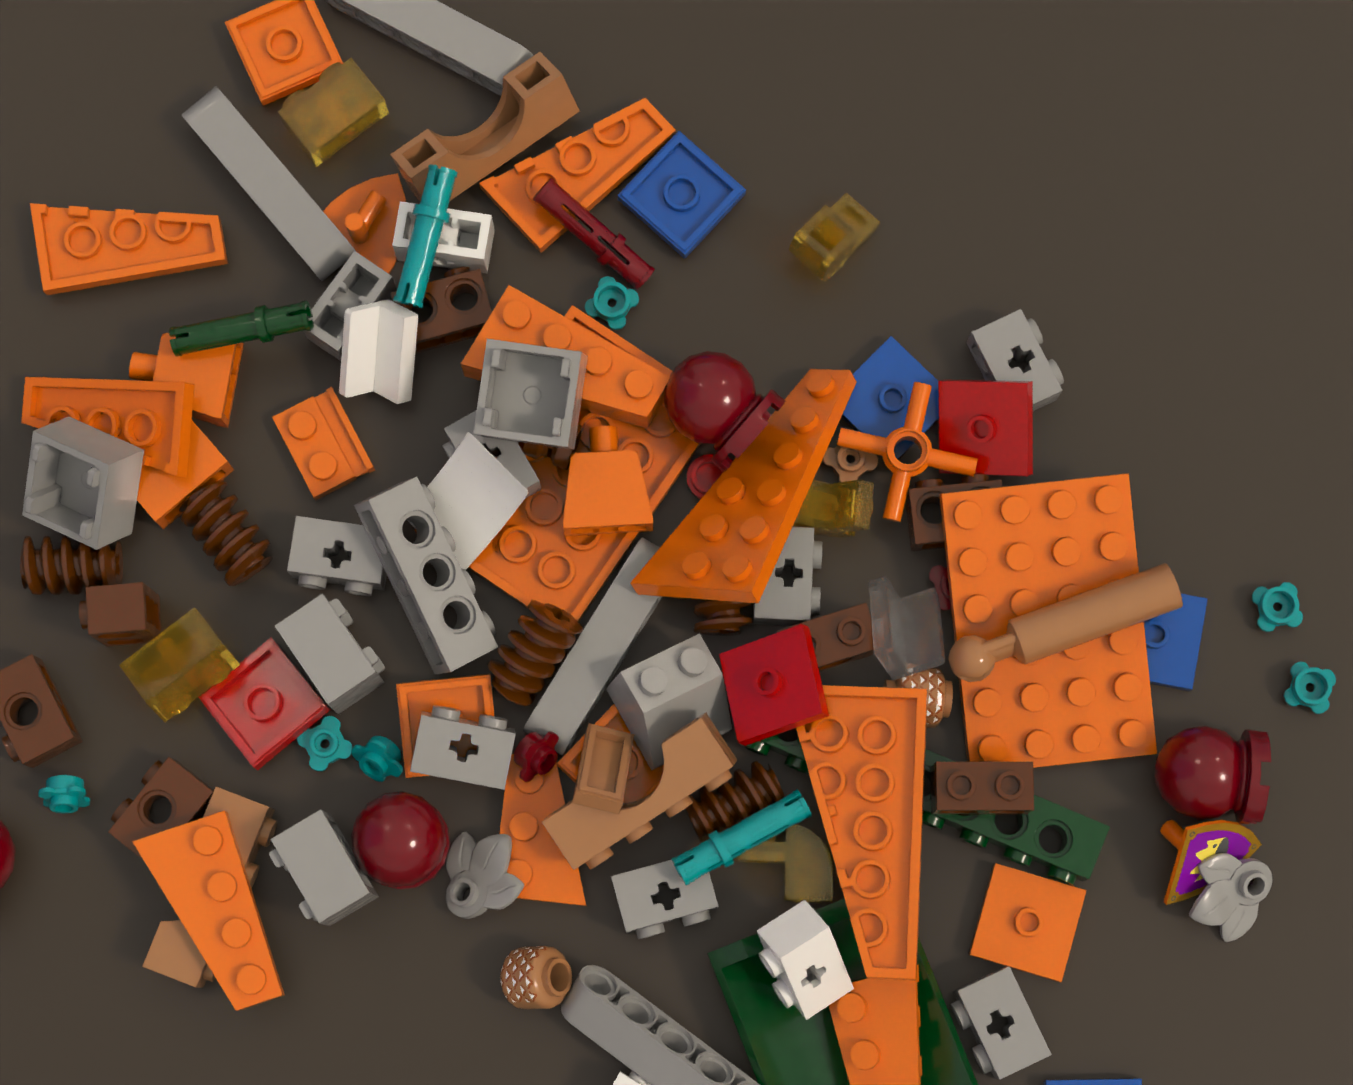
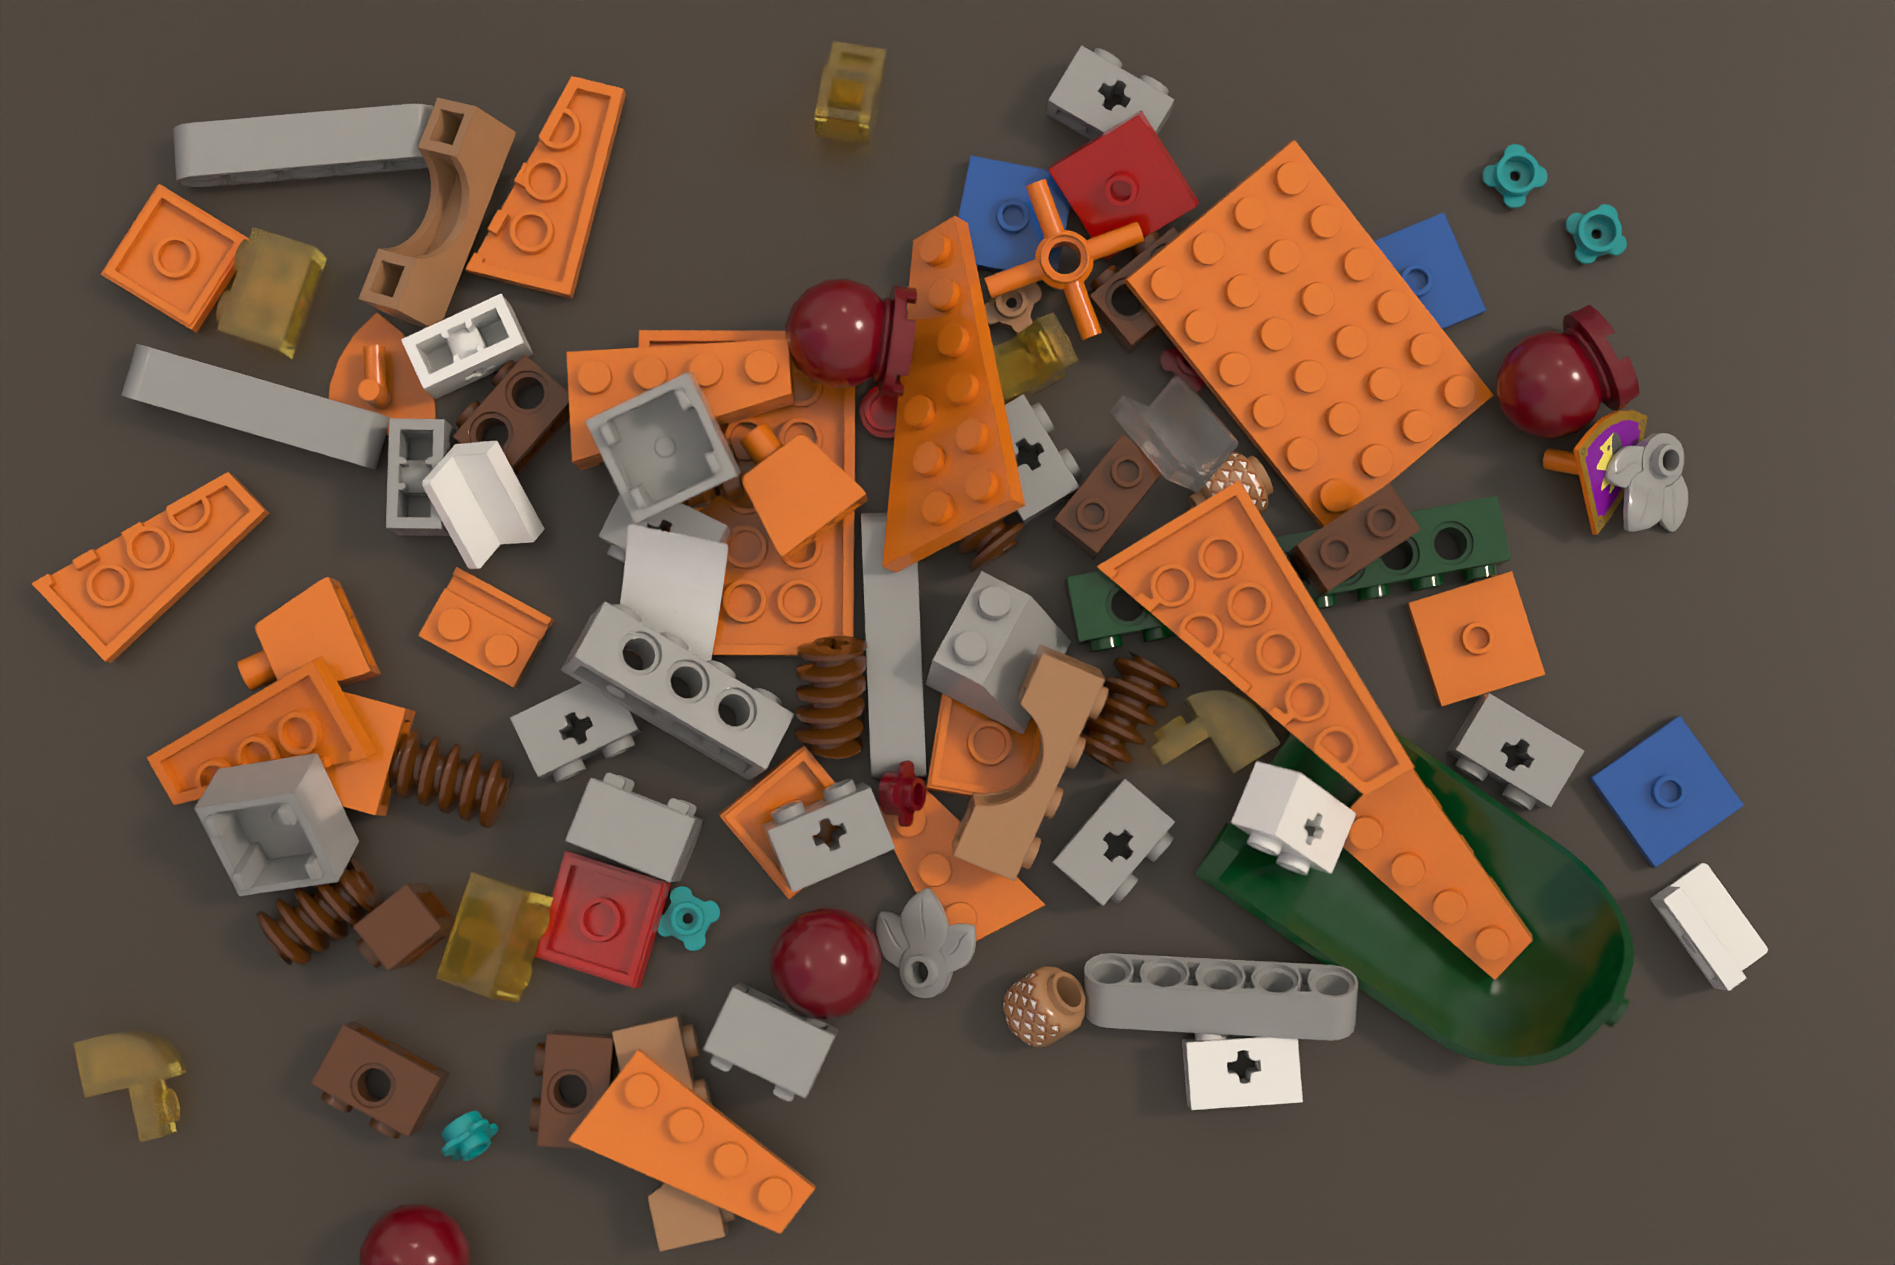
camera: 30 degrees left, 5 degrees up
(242, 328) = (346, 554): dark green pin -> none
(378, 758) = (750, 897): teal plate -> none
(425, 236) = (450, 356): teal pin -> none
(603, 768) = (978, 764): medium nougat tile -> none
(607, 290) = (664, 291): teal plate -> none
(635, 270) = (676, 256): dark red pin -> none
(681, 194) = (672, 149): blue plate -> none
(733, 841) = (1154, 741): teal pin -> none
(773, 684) = (1088, 573): red plate -> none
(1070, 622) = (1334, 323): medium nougat piece -> none

